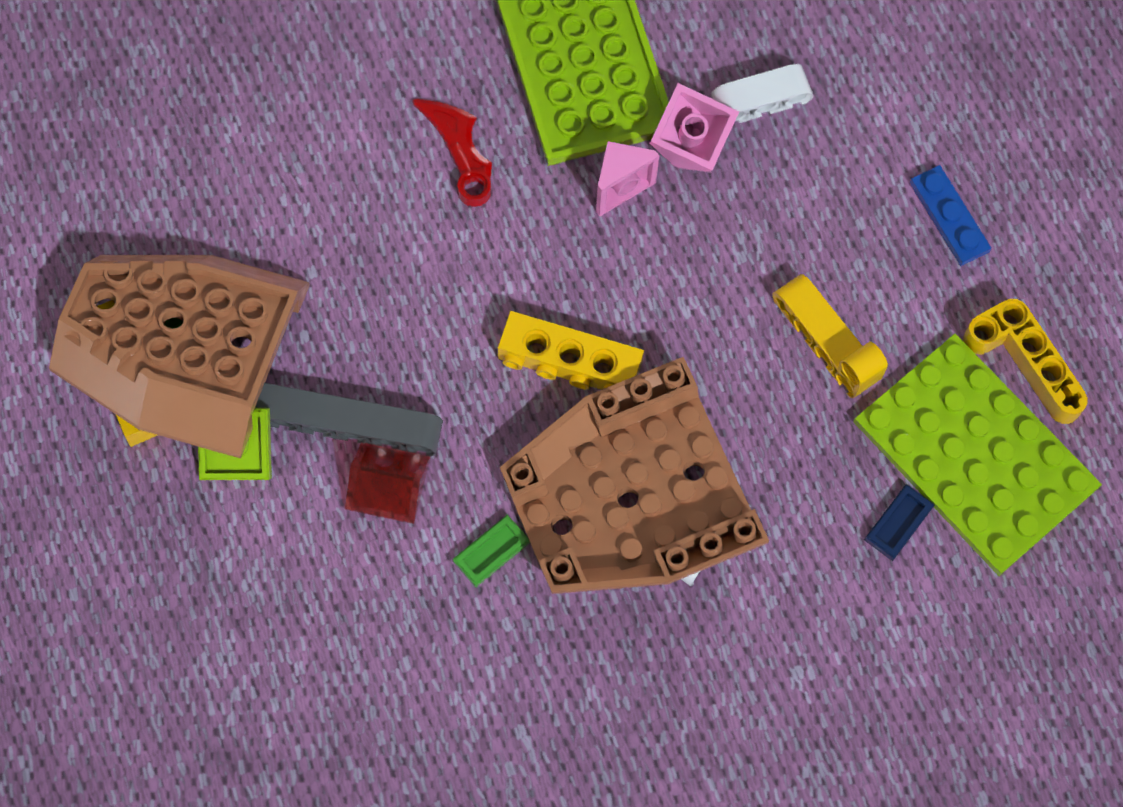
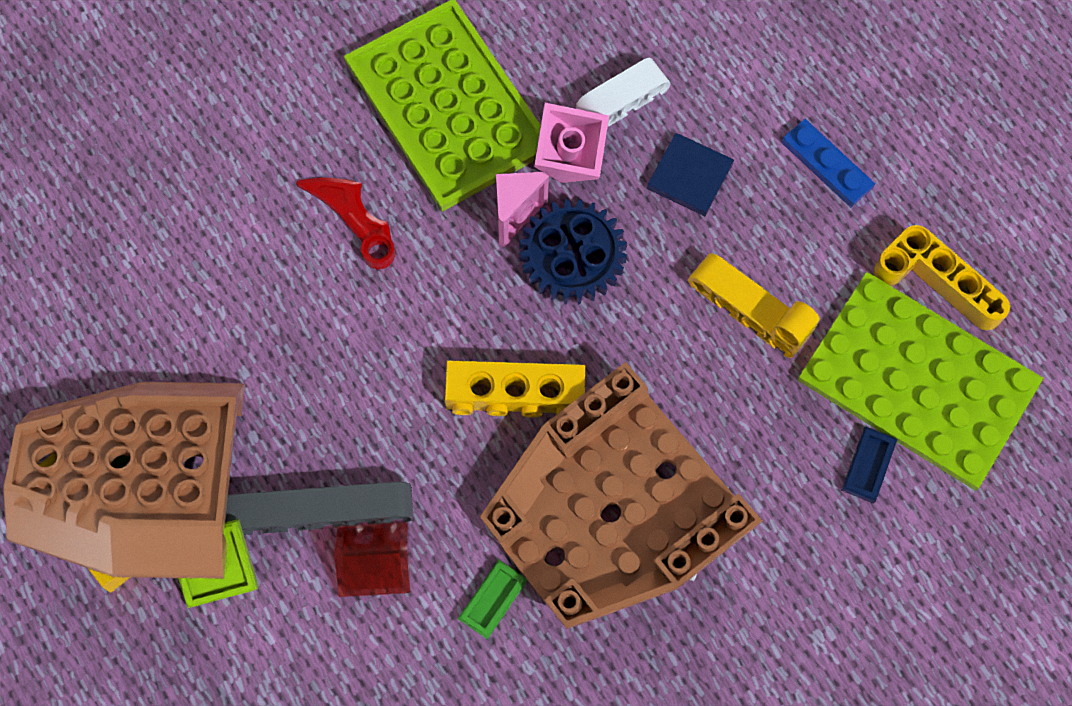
camera: 15 degrees left, 0 degrees up
(634, 239) = (600, 242): none -> dark blue gear
(807, 191) = (690, 174): none -> dark blue tile

